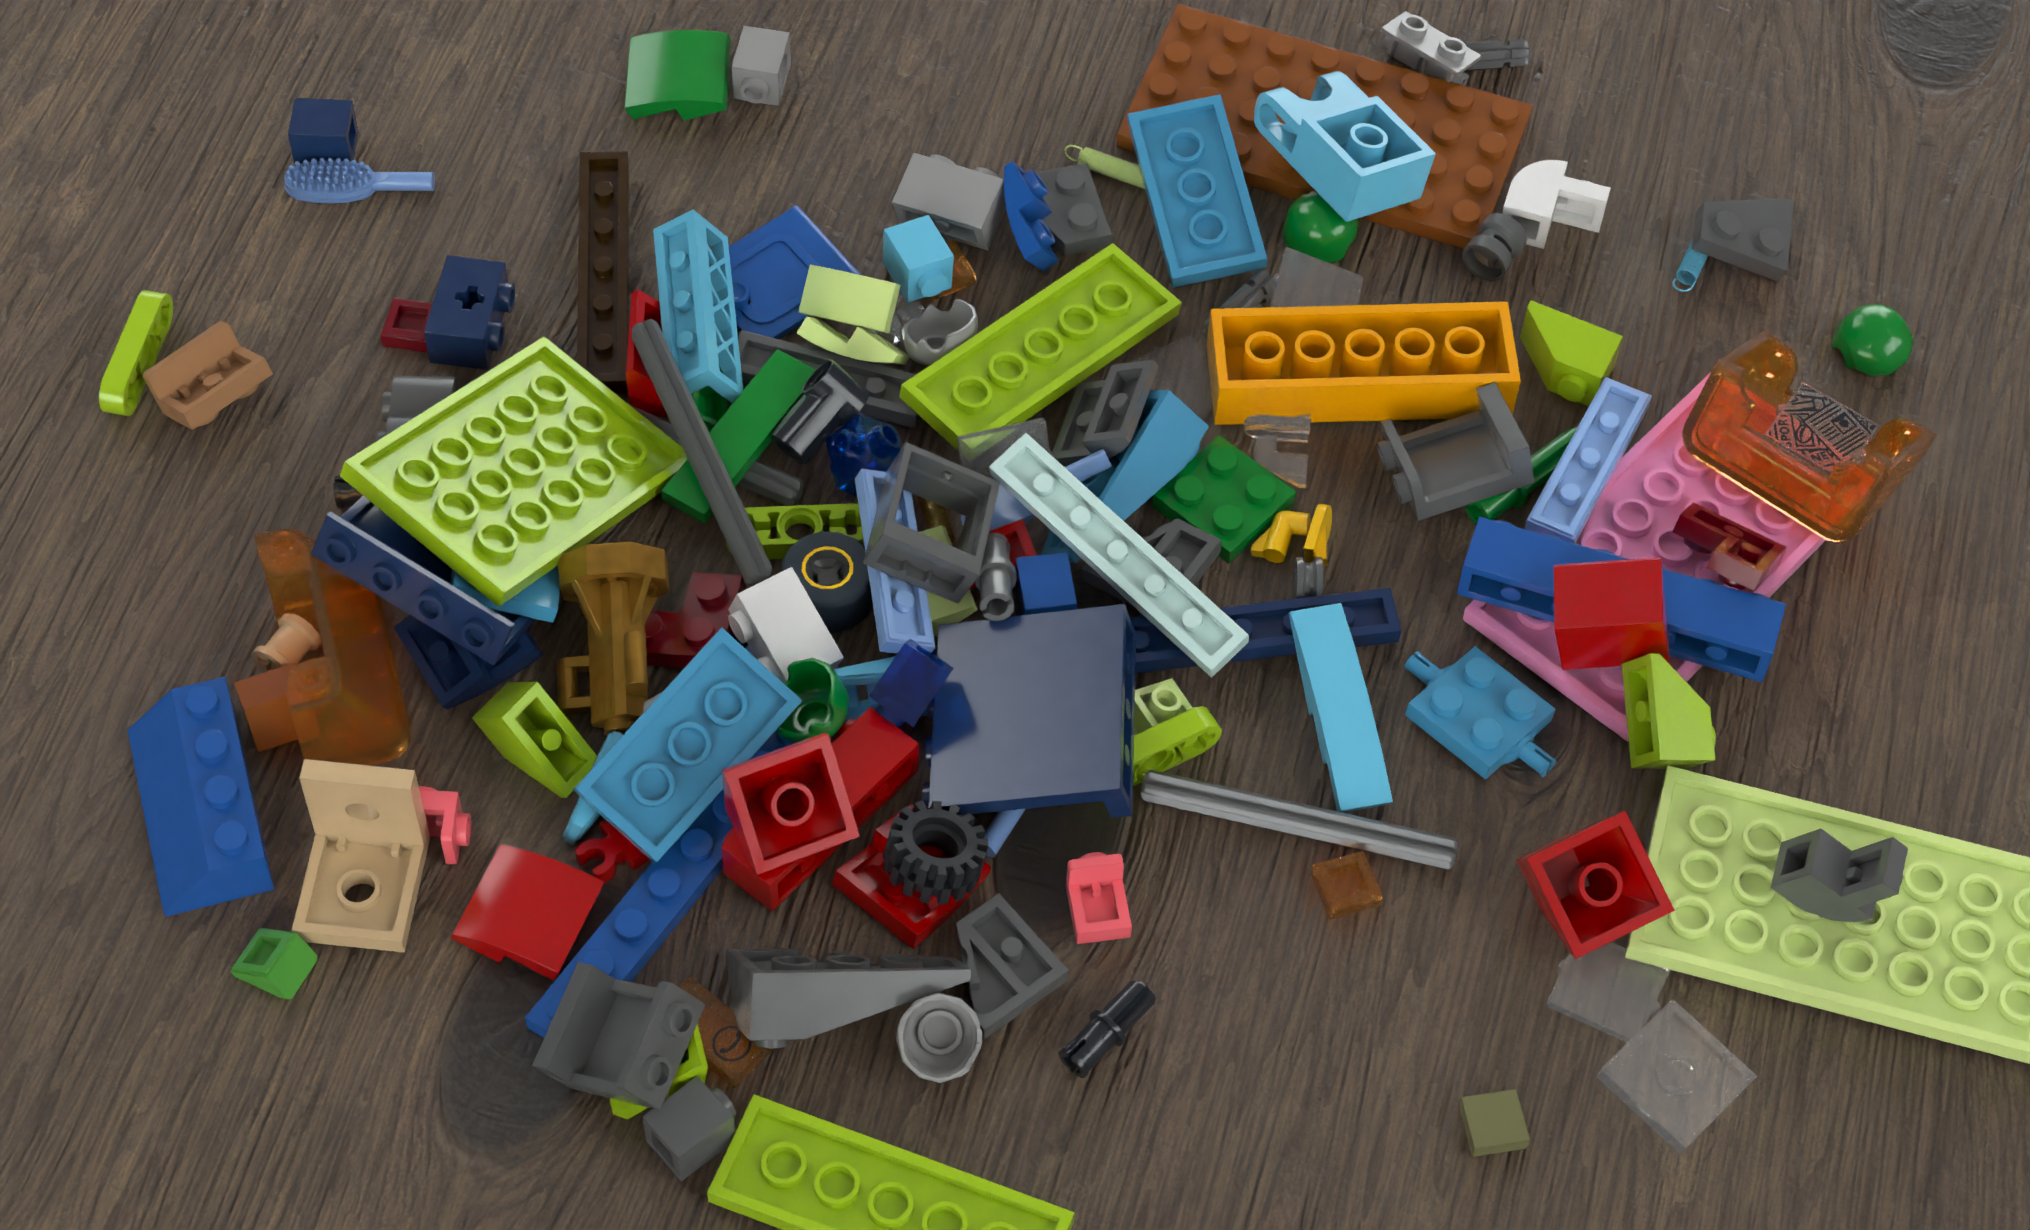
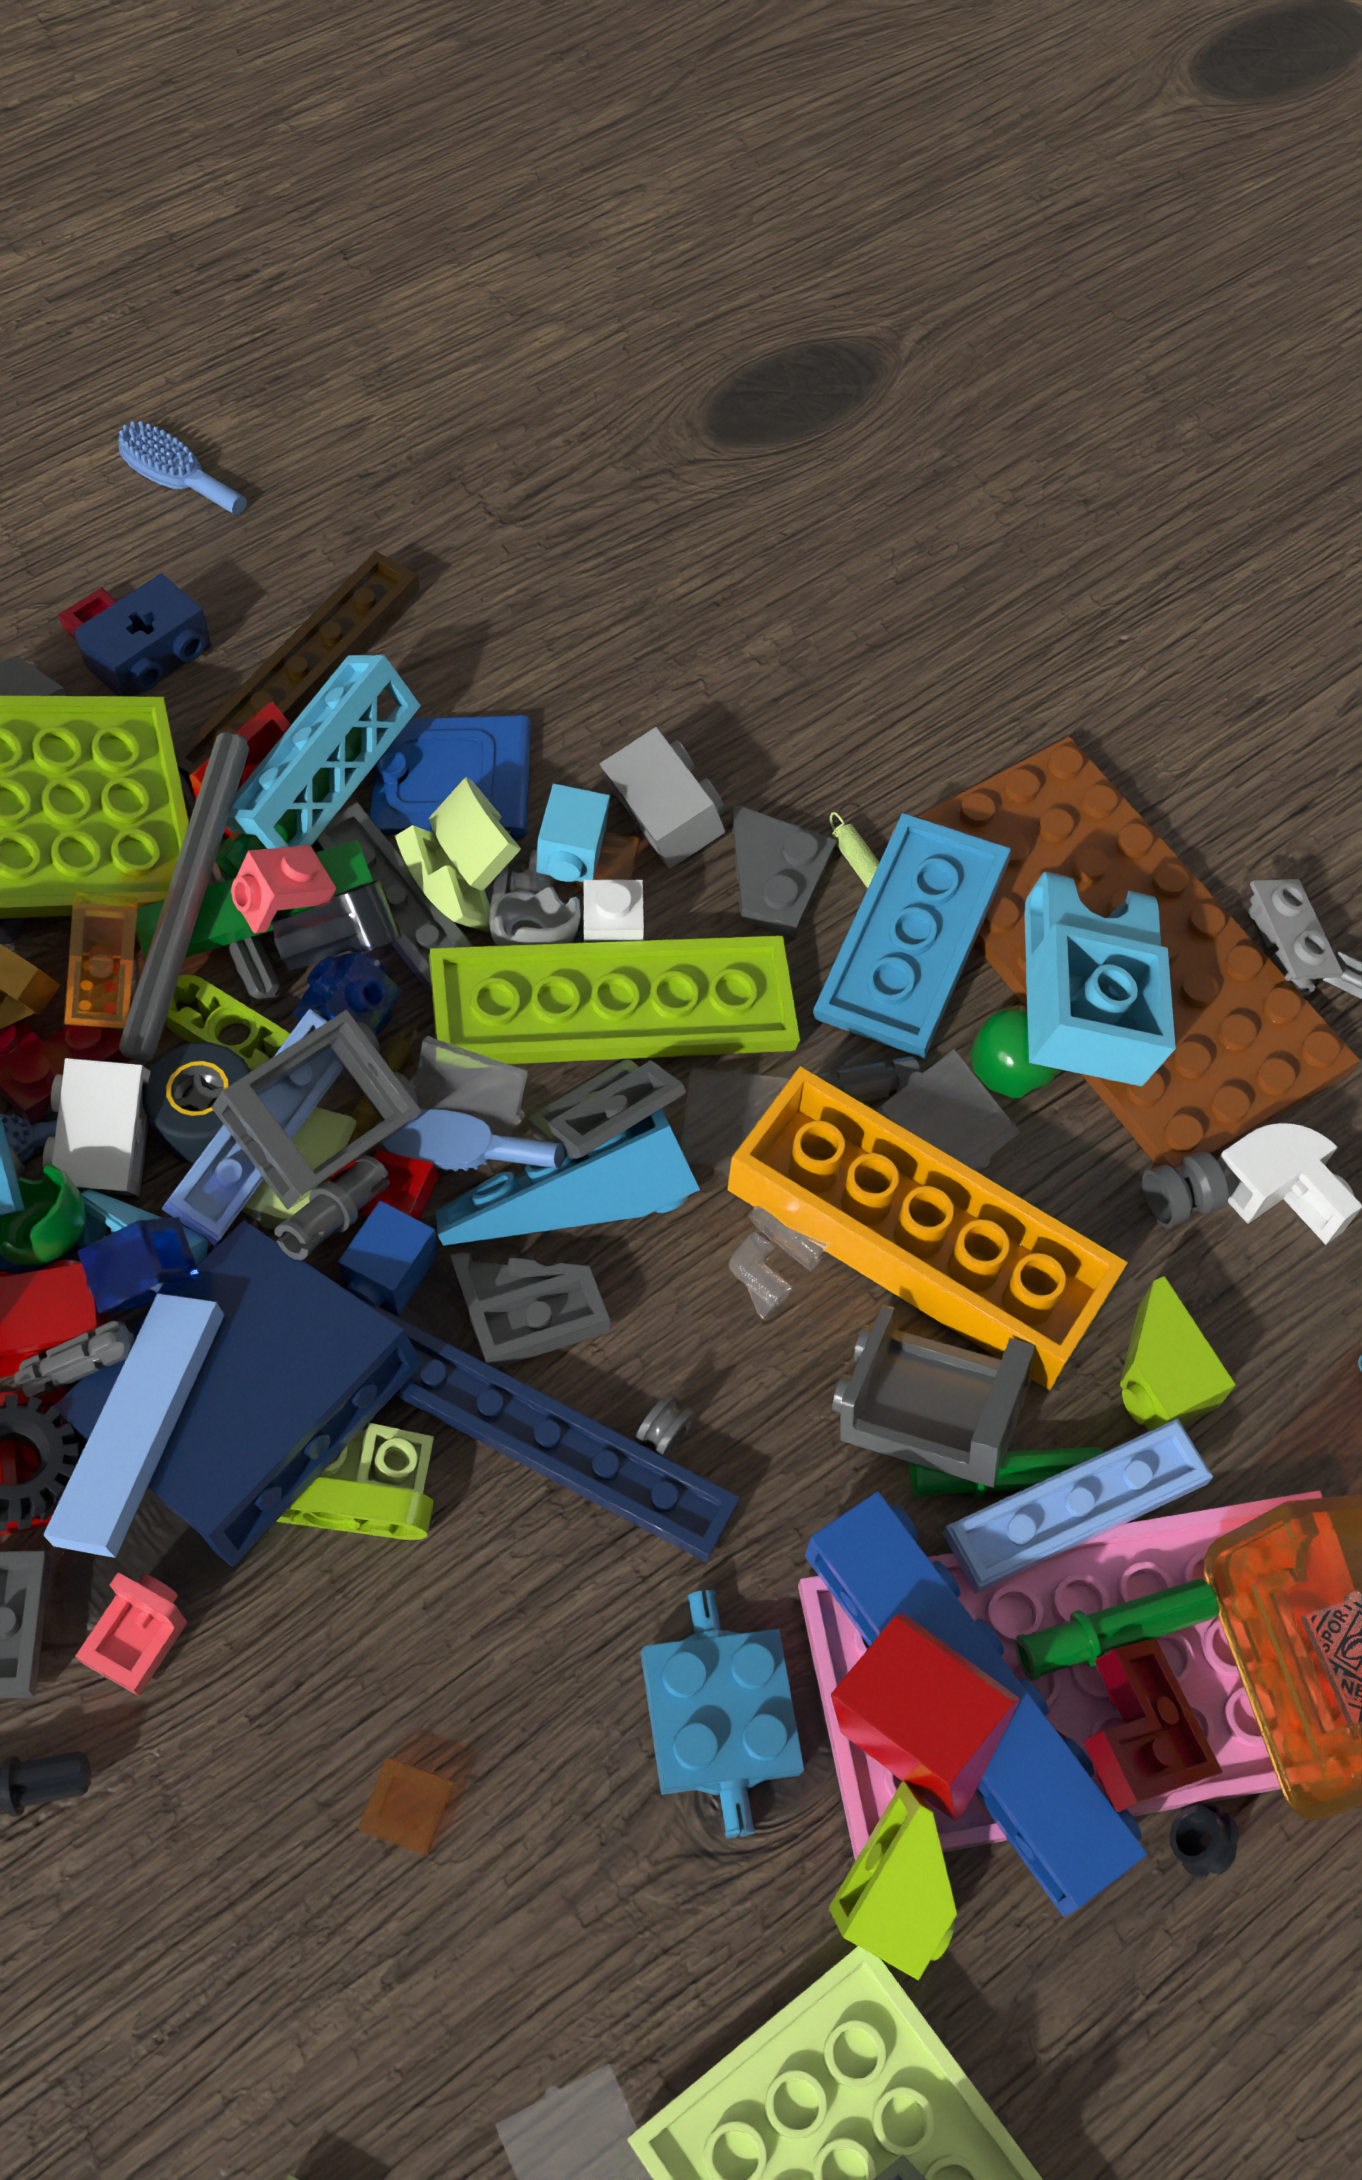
camera: 35 degrees right, 5 degrees up
(323, 129) = (185, 407): dark blue panel -> none
(678, 72) = (536, 531): green slope -> none
(681, 519) = (100, 960): none -> clear orange slope
(759, 405) = (279, 881): none -> coral bracket
(761, 65) = (612, 566): light grey brick -> none
(917, 768) = (75, 1359): none -> dark grey axle
(993, 292) = (613, 910): none -> white brick
(1004, 767) = (134, 1426): none -> light blue tile
(1025, 210) = (722, 846): blue slope -> none
(1119, 555) = (473, 1274): light aqua plate -> none
(1225, 496) = (667, 1276): green plate -> none
(1276, 540) = (727, 1375): yellow piece -> none
(1299, 819) = (427, 1698): axle -> none
(1340, 708) = (565, 1600): medium azure slope -> none
(1595, 884) = (642, 2033): red slope -> none
(1656, 525) = (1128, 1623): none -> green axle
(1792, 591) = (1191, 1834): none -> black plate

